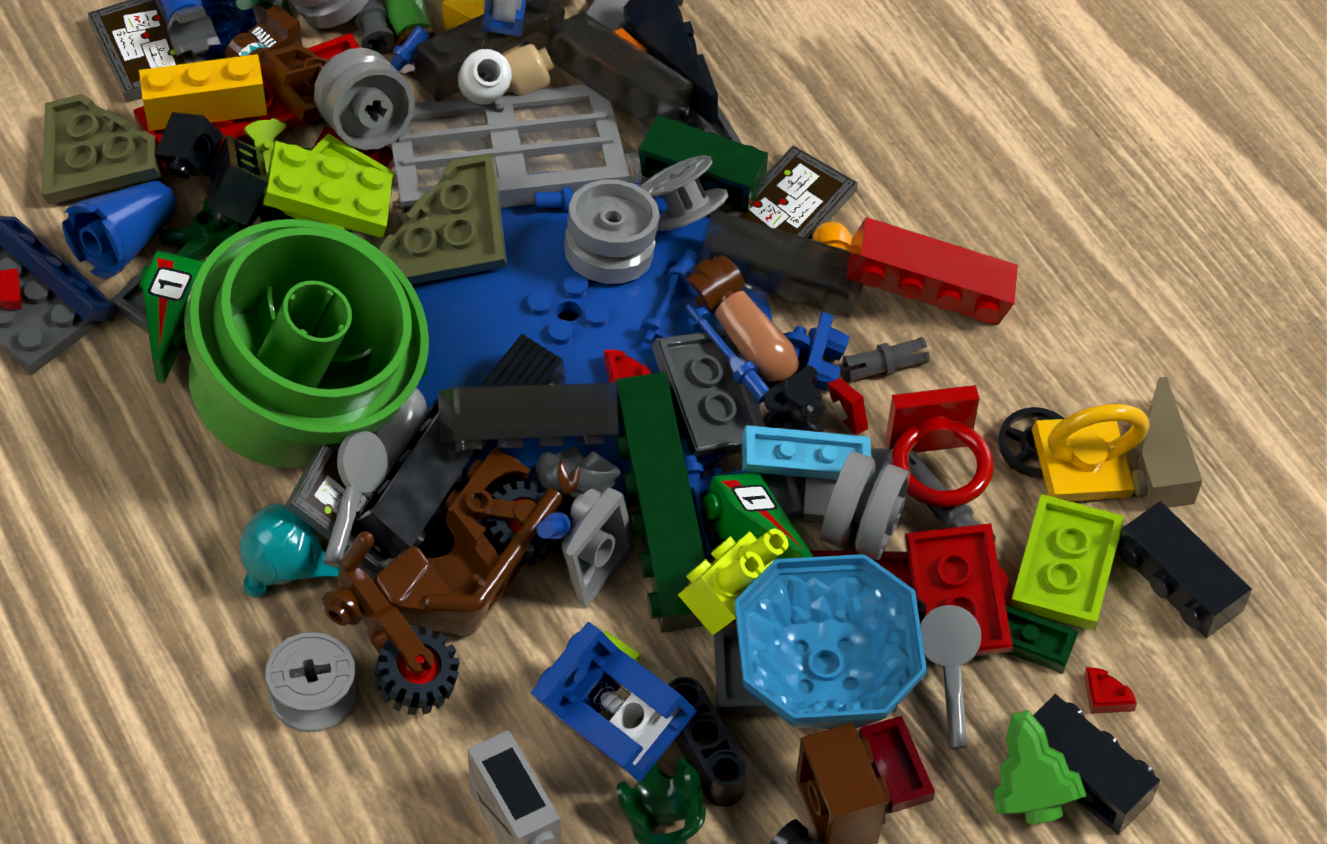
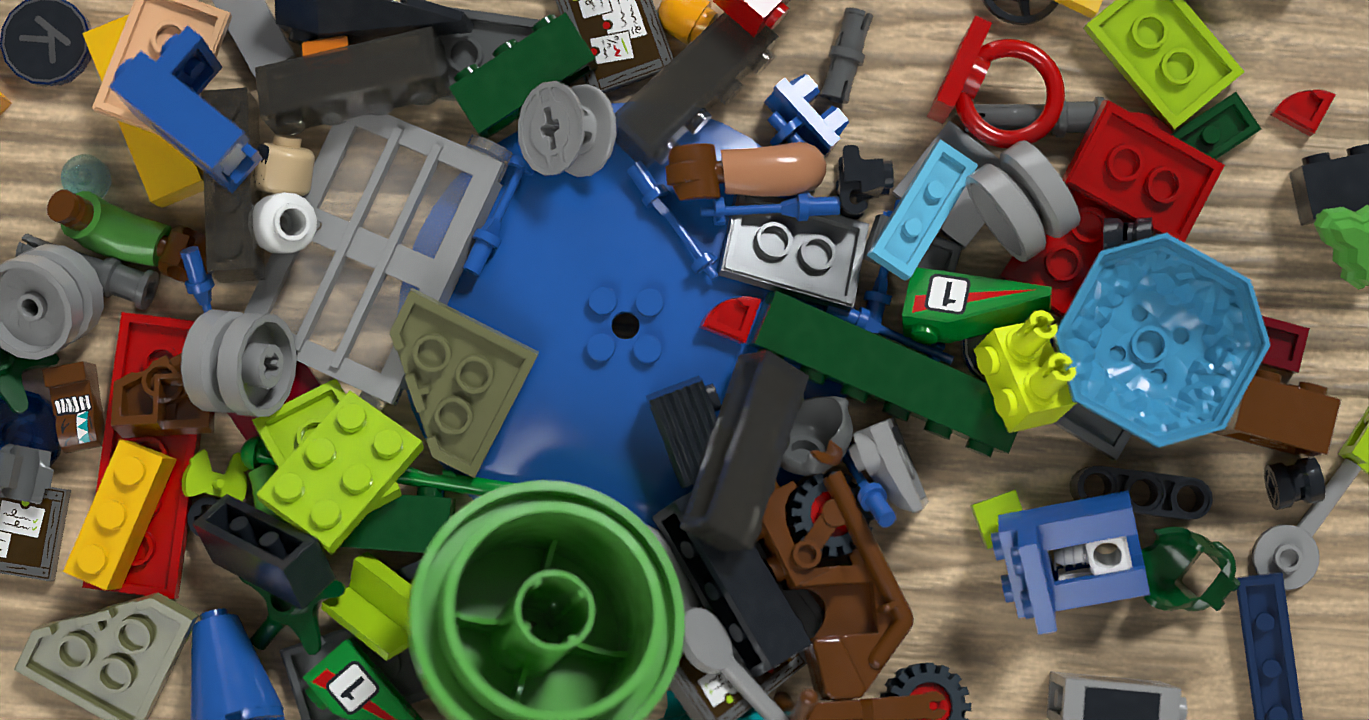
camera: 50 degrees left, 30 degrees up
(189, 145) = (183, 569): black brick -> none
(611, 231) = (569, 206): light grey wheel -> none
(852, 404) = (886, 125): red tile -> none
(950, 641) = (1195, 218): light grey piece -> none

